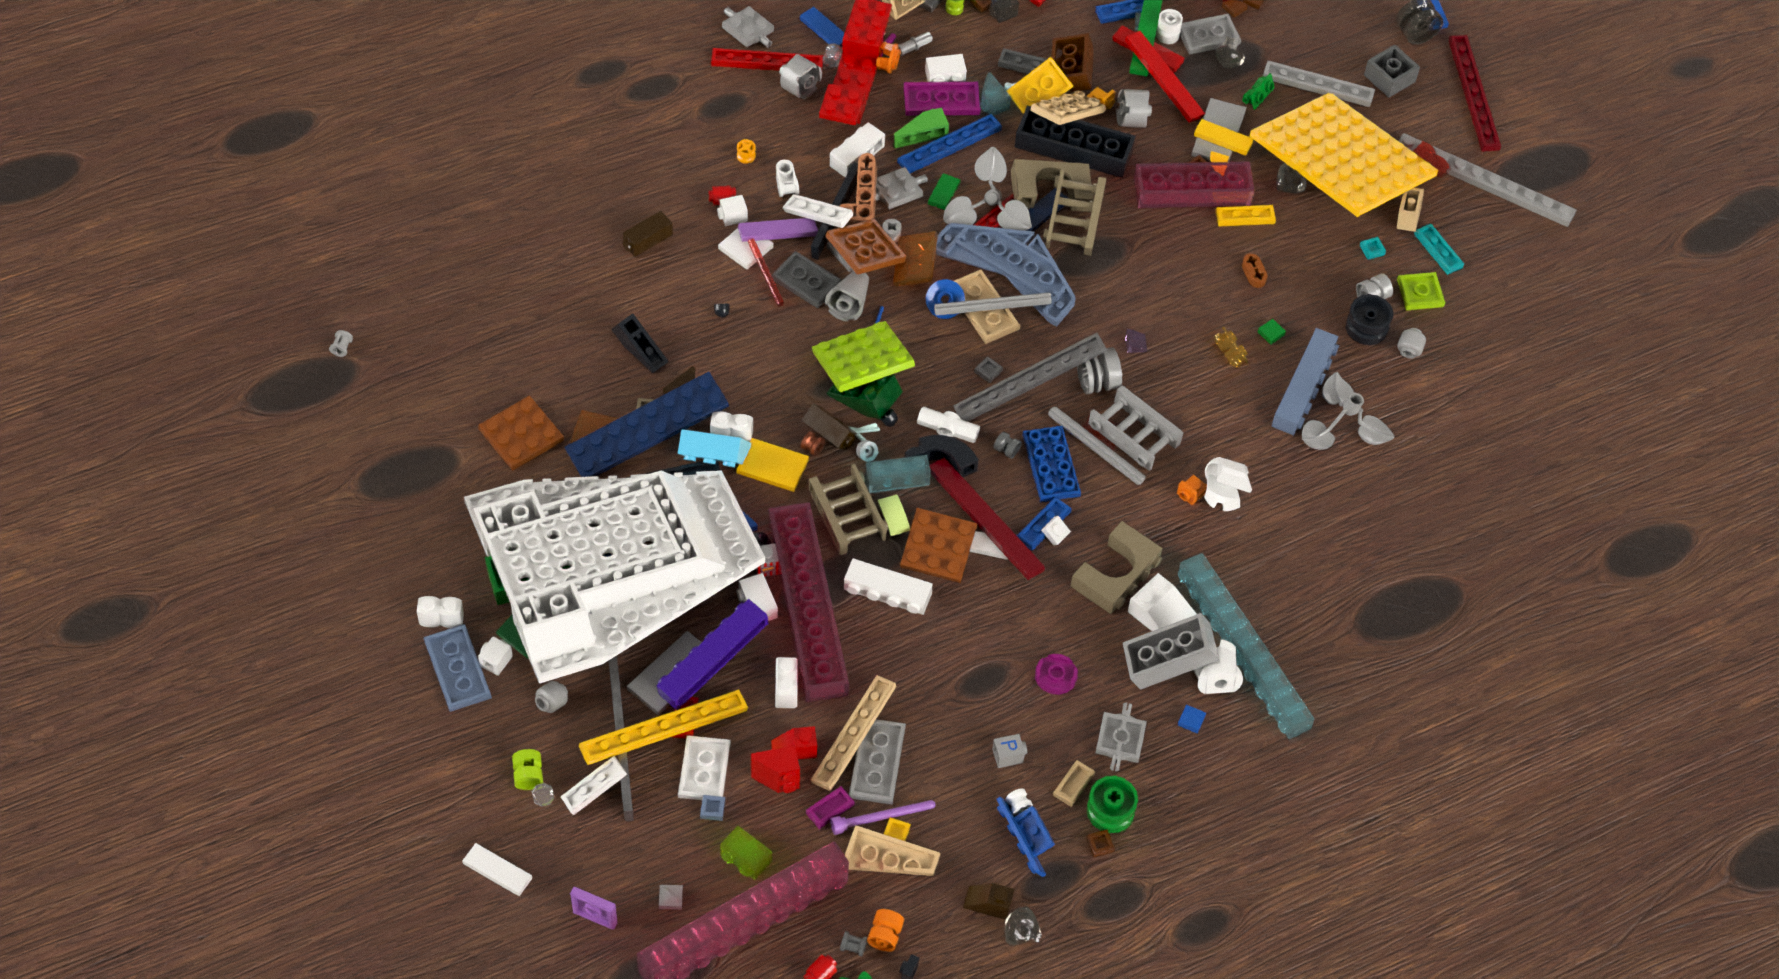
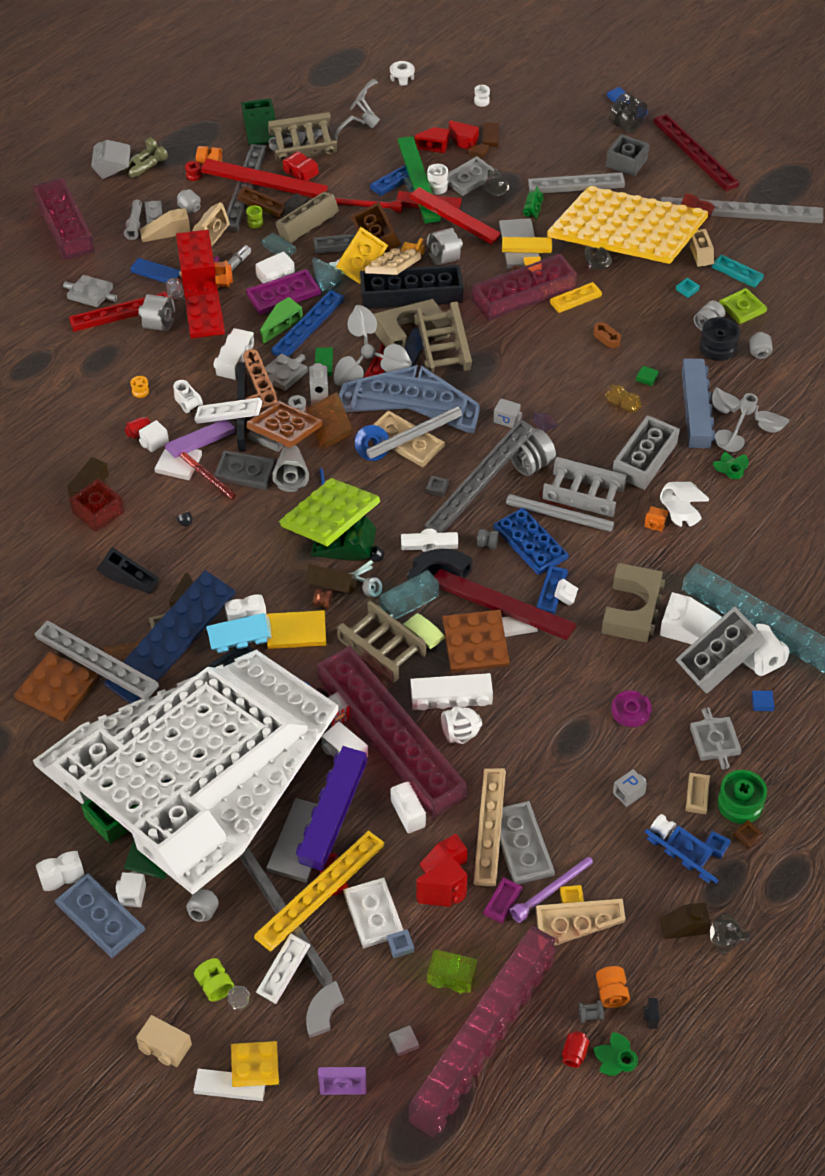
camera: 20 degrees left, 5 degrees down
(457, 806) = (163, 1041): none -> tan brick
(526, 860) = (254, 1064): none -> yellow plate
(566, 422) = (97, 660): none -> light grey plate
(611, 837) = (321, 1009): none -> light grey tile
(642, 263) = (97, 505): none -> clear red brick
(878, 623) = (460, 724): none -> white helmet
(926, 210) = (318, 377): none -> light grey torso
(964, 43) = (278, 245): none -> clear light blue tile
(1008, 22) = (307, 217): none -> dark tan brick
(1064, 840) = (718, 844): none -> blue tile
(1100, 318) = (507, 413): none -> light grey brick
(1110, 42) = (396, 206): none -> red piece
(1219, 415) = (646, 451): none -> light grey brick
(1305, 462) = (732, 467): none -> green plate

